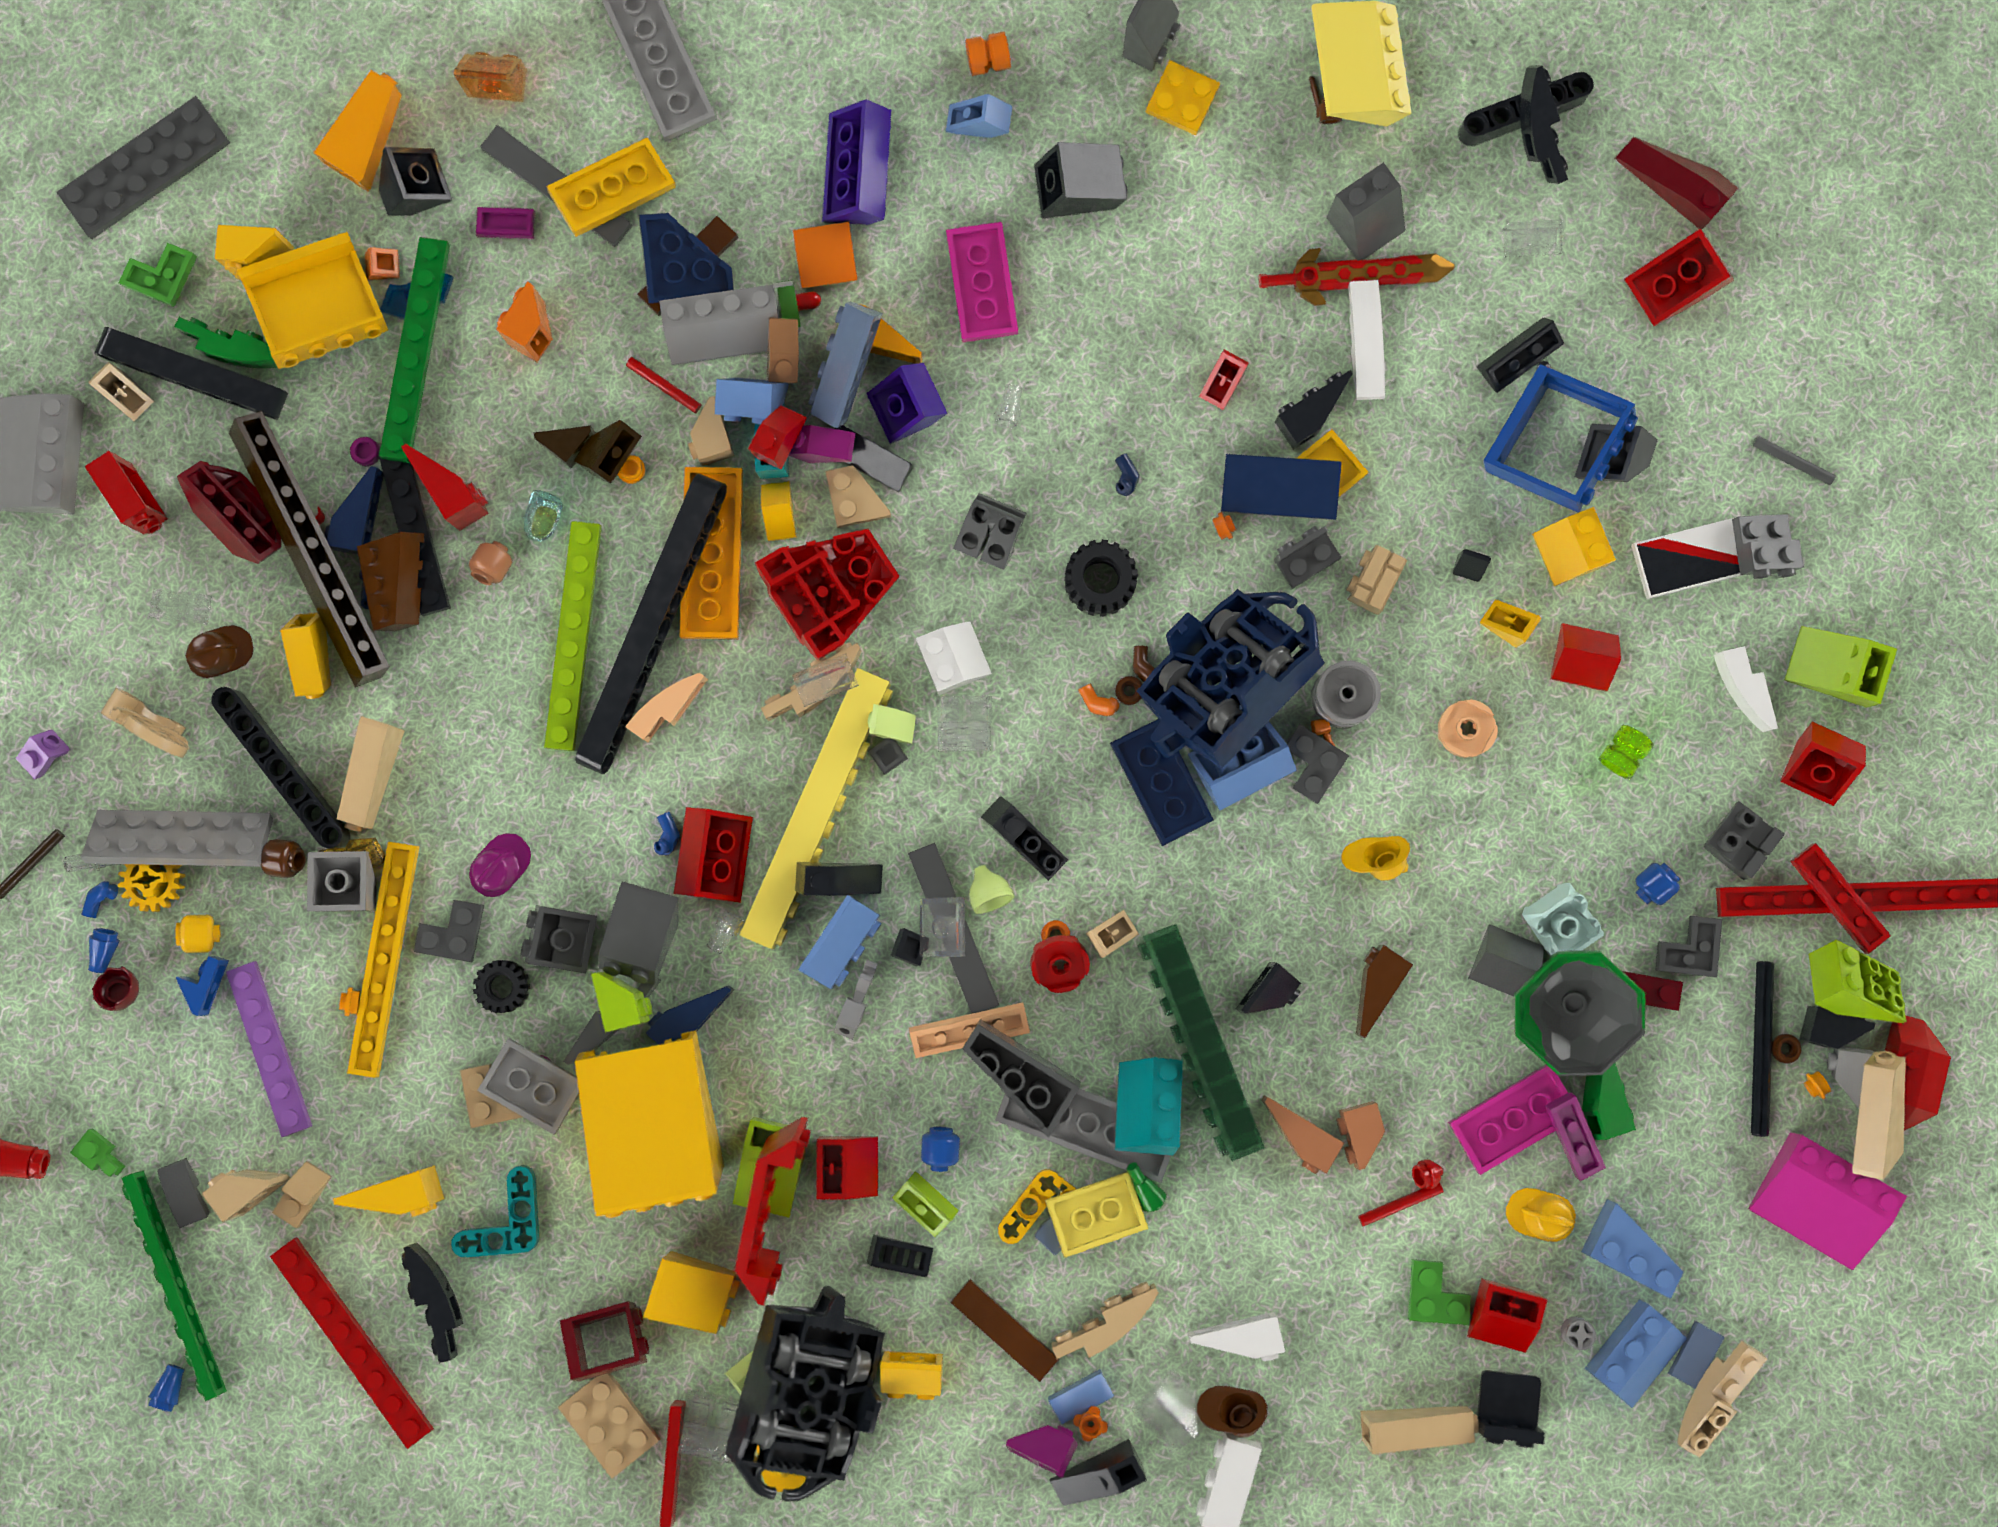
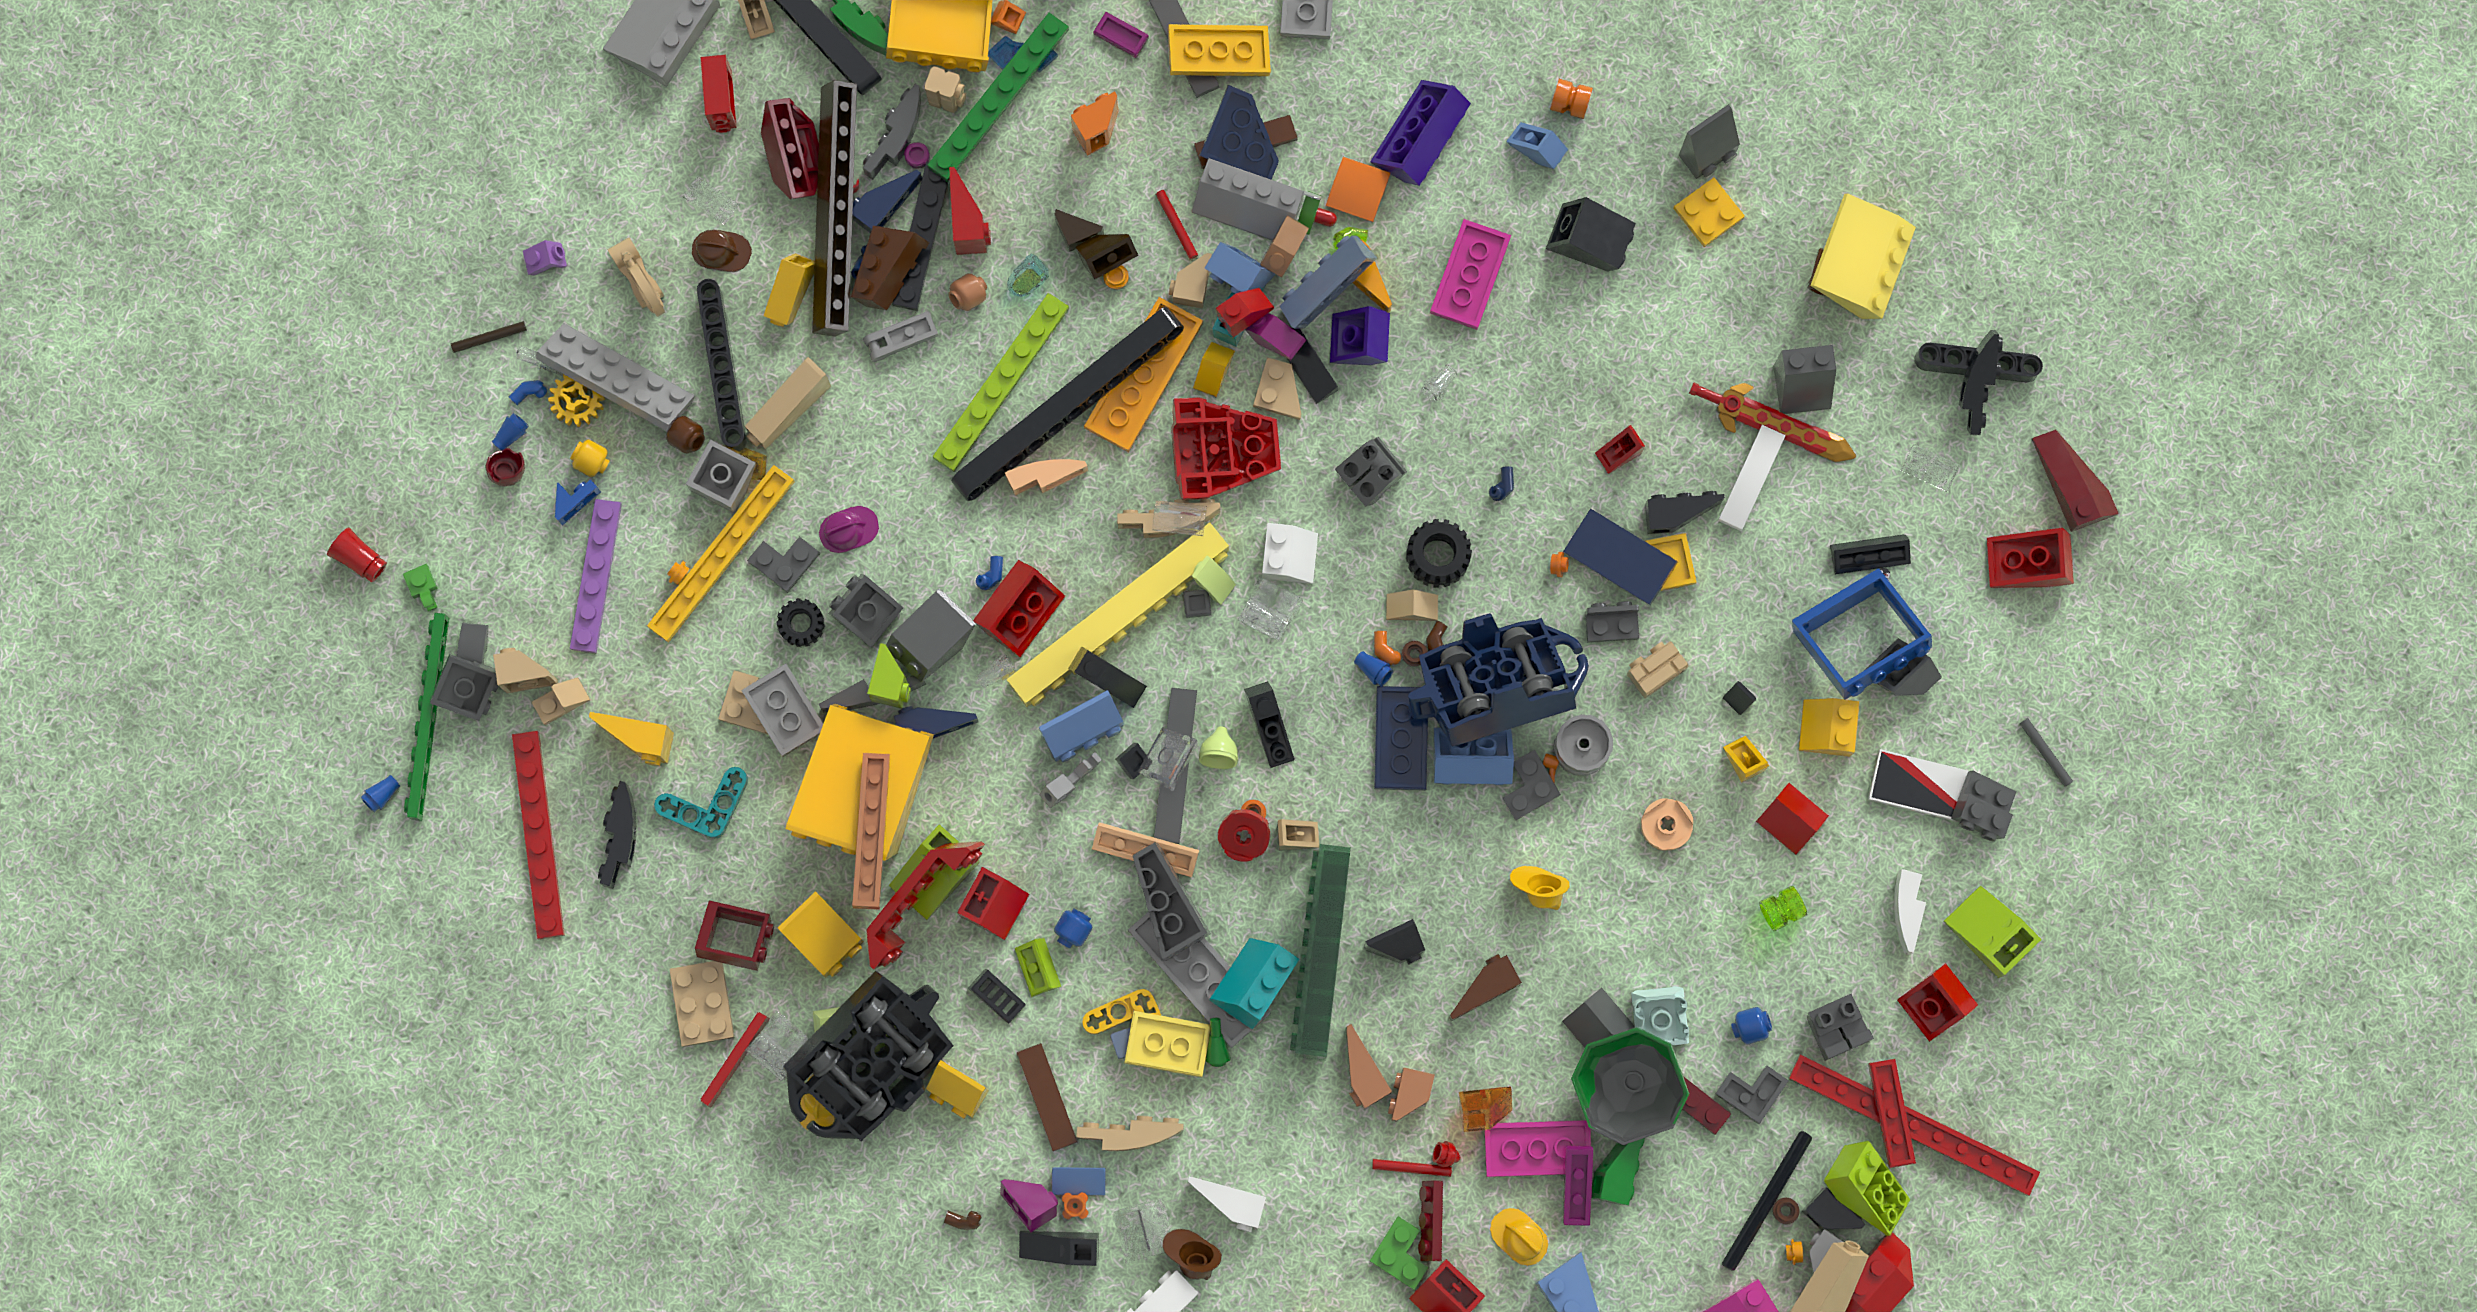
camera: 25 degrees right, 5 degrees down
(193, 1239) = (465, 687): none -> dark grey plate
(334, 430) = (902, 126): none -> dark grey slope
(355, 370) = (944, 90): none -> tan brick
(447, 642) = (901, 336): none -> light grey plate
(685, 1173) = (871, 831): none -> nougat plate
(840, 301) = (1350, 231): none -> clear neon green arm
(996, 1499) = (958, 1221): none -> reddish brown arm
(1098, 727) = (1375, 669): none -> blue cone
(1101, 644) = (1412, 606): none -> tan slope
(1441, 1108) = (1484, 1107): none -> clear orange slope
(1449, 1248) = (1431, 1220): none -> dark red plate

